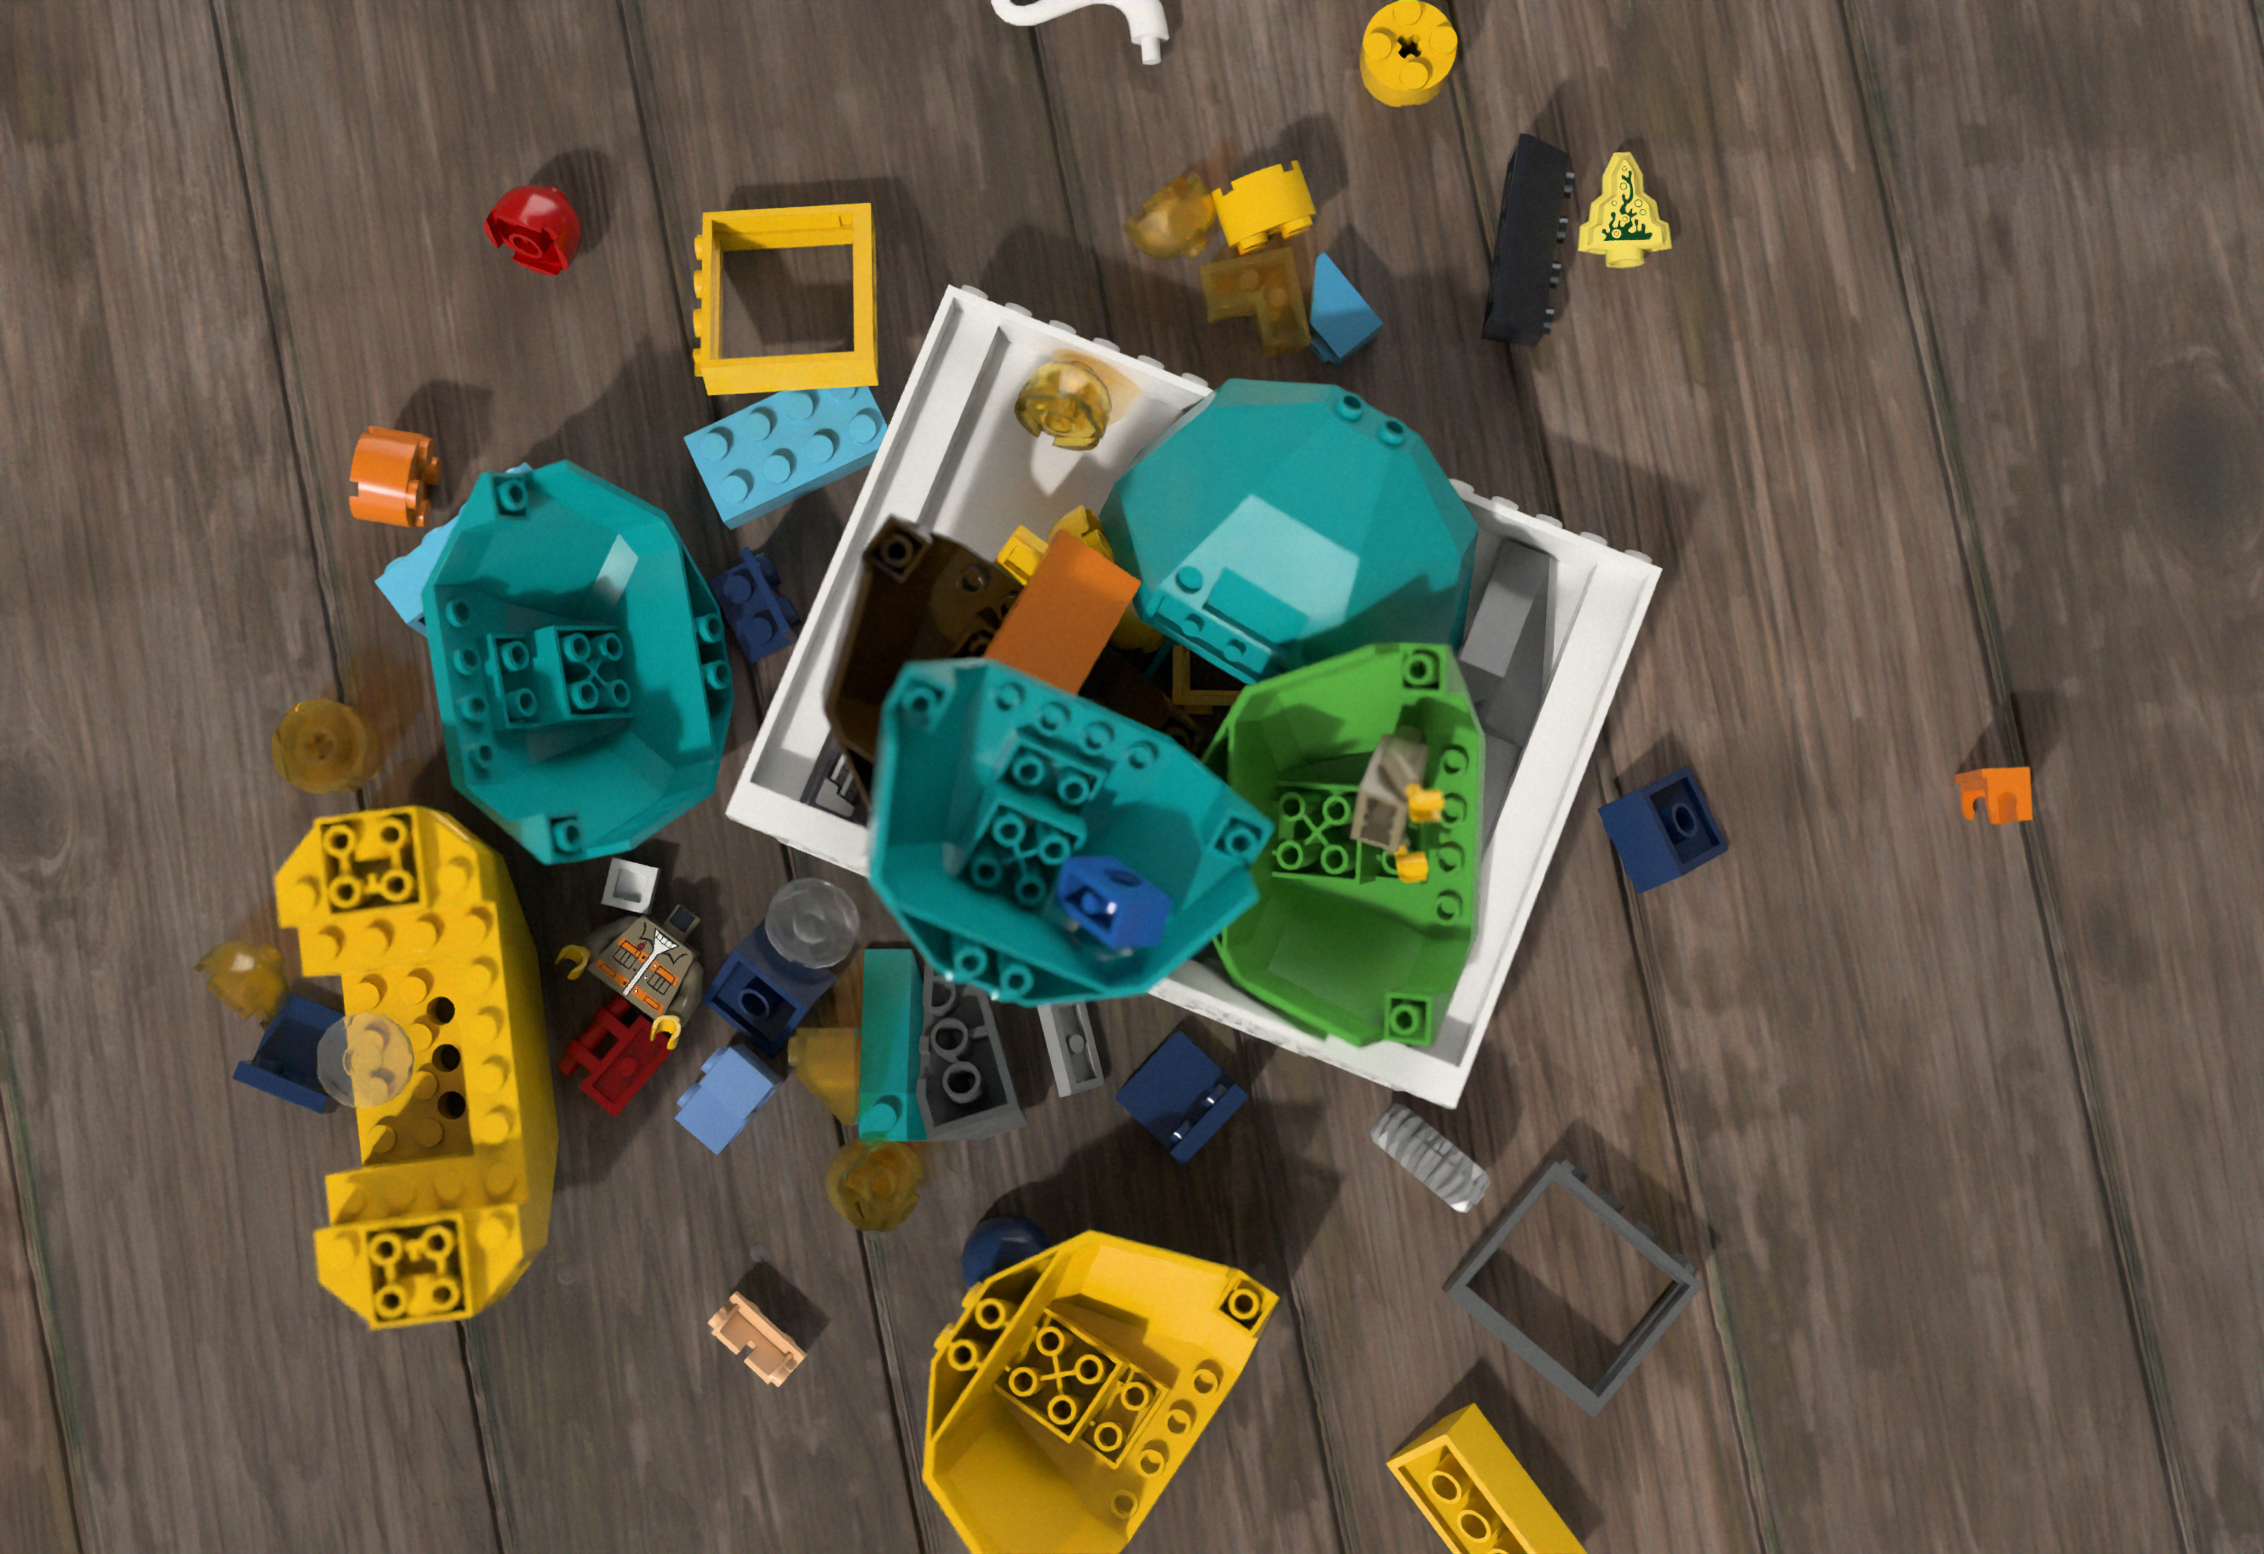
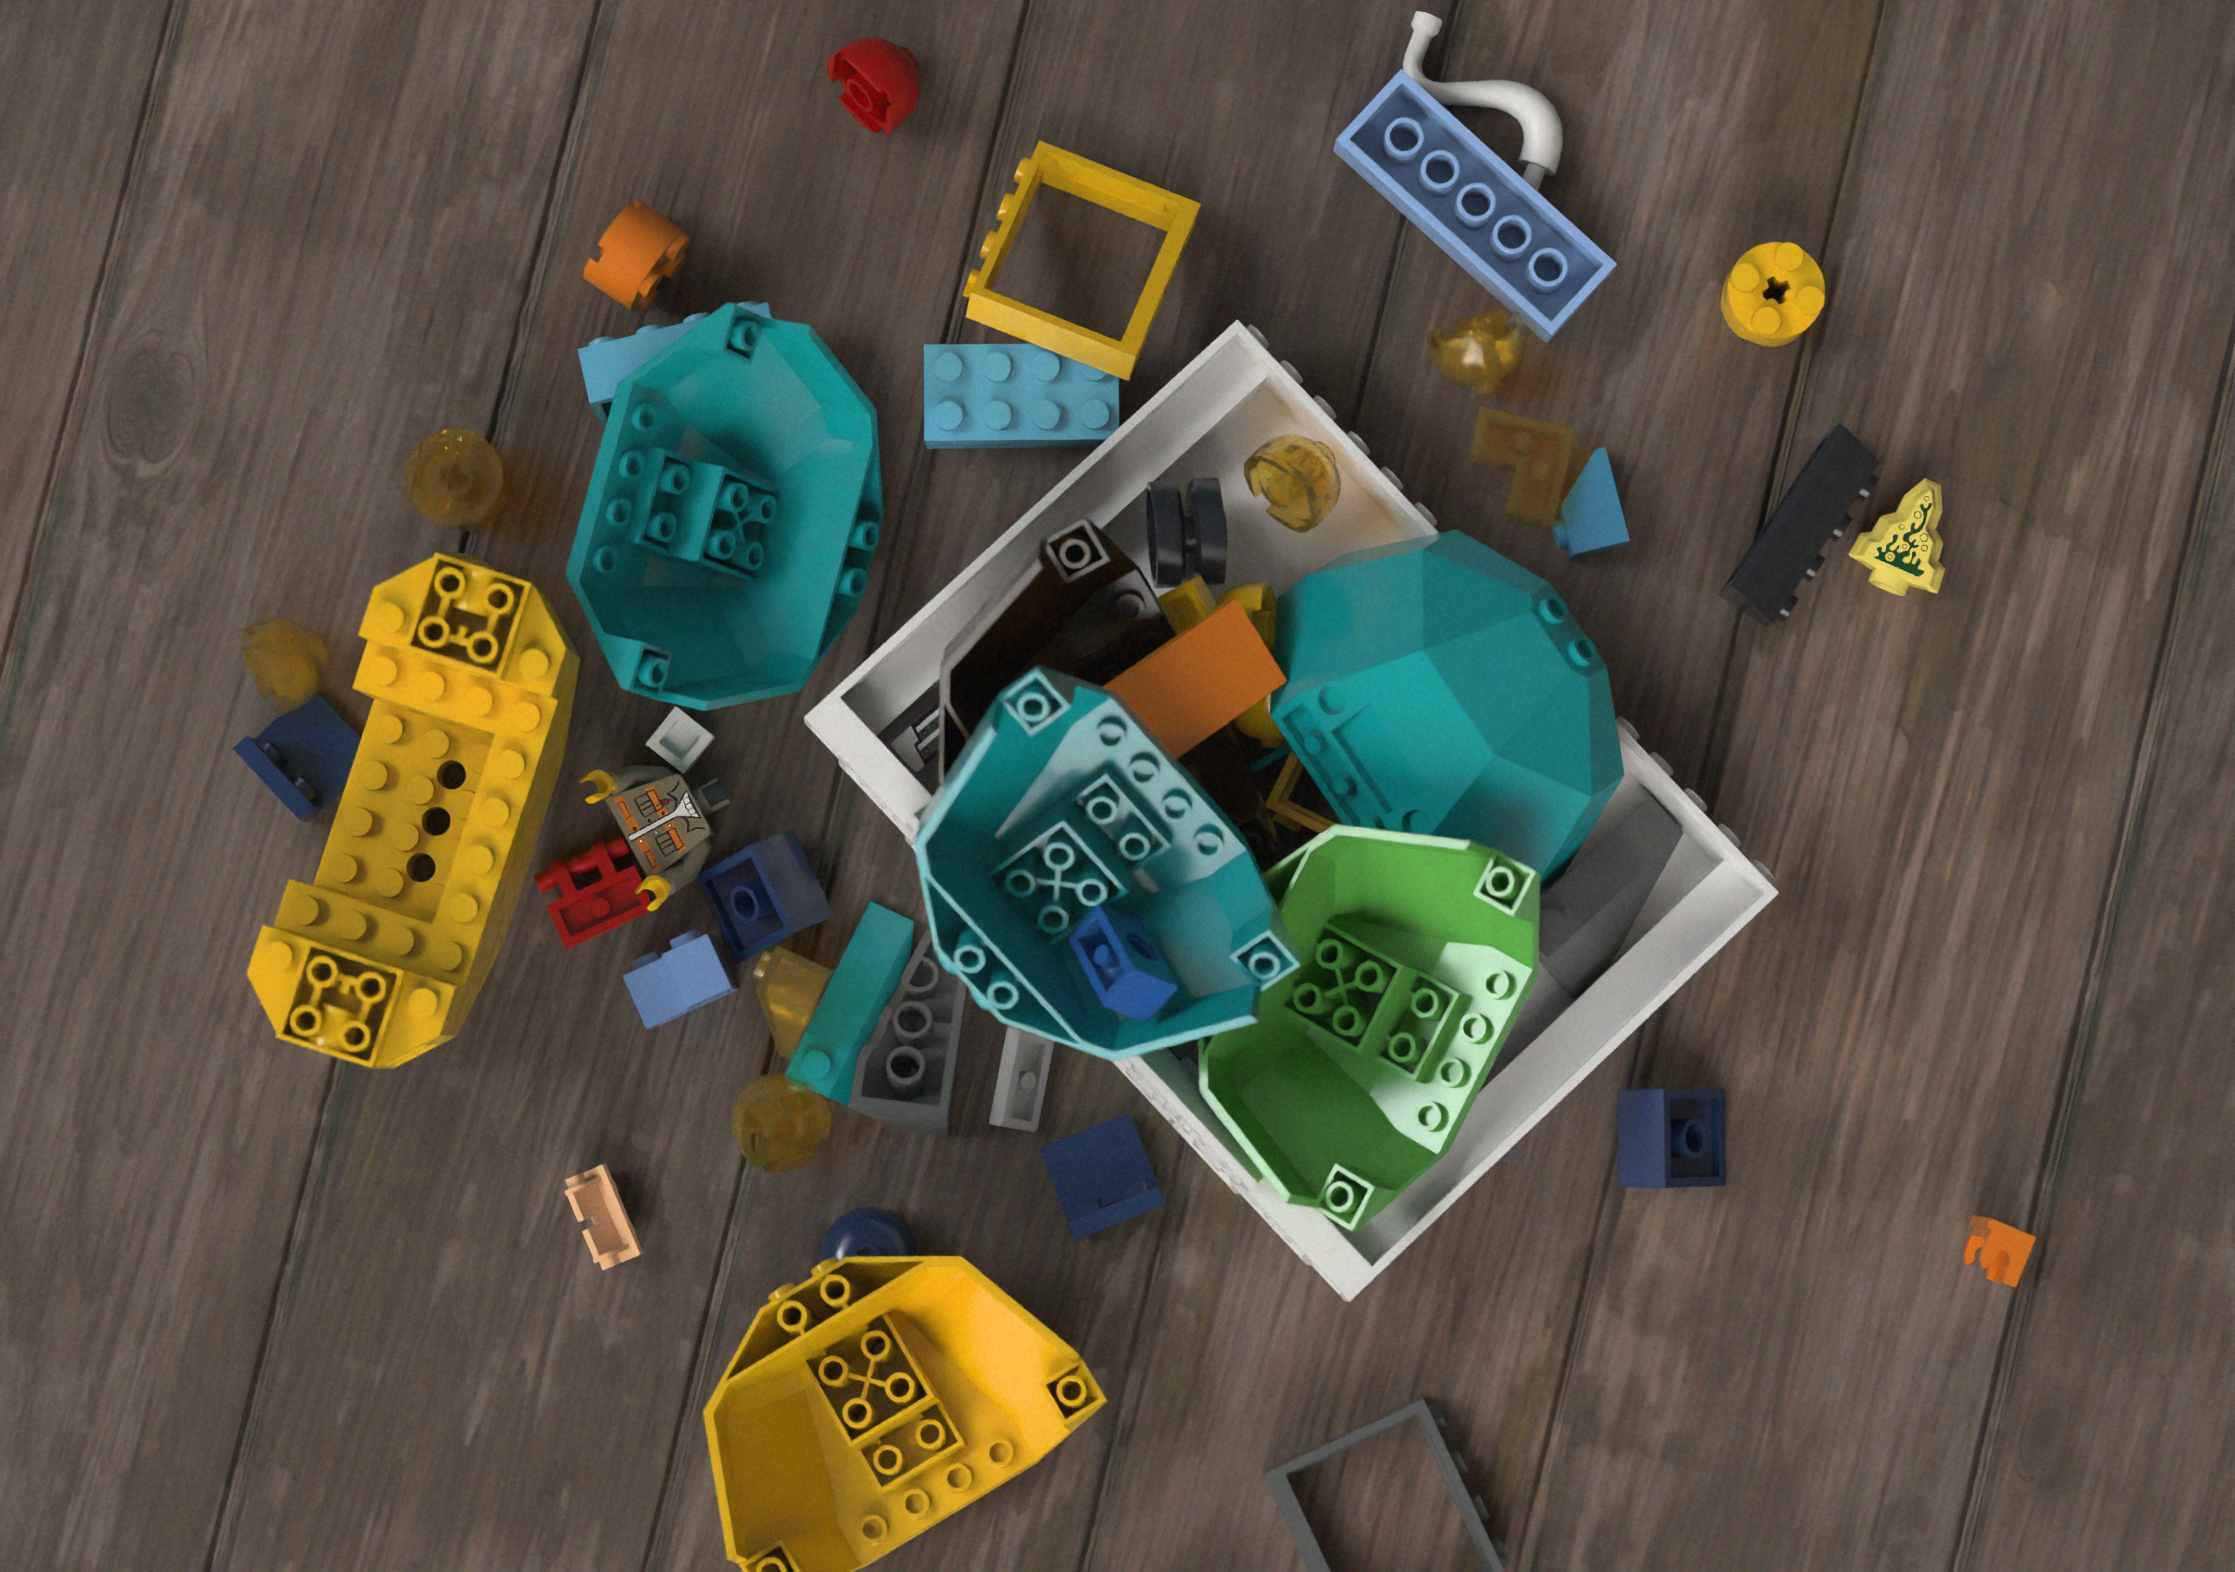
camera: 25 degrees right, 0 degrees up
(364, 1060) = (361, 788): clear tile -> none
(753, 607) = (915, 533): dark blue bracket -> none
(812, 922) = (834, 853): clear tile -> none
(996, 492) = (1191, 532): none -> black wheel
(1110, 95) = (1473, 206): none -> light blue brick
(1264, 206) = (1569, 377): yellow brick -> none
(1393, 795) = (1425, 988): dark tan torso -> none
(1430, 1157) = (1308, 1341): light grey gear -> none

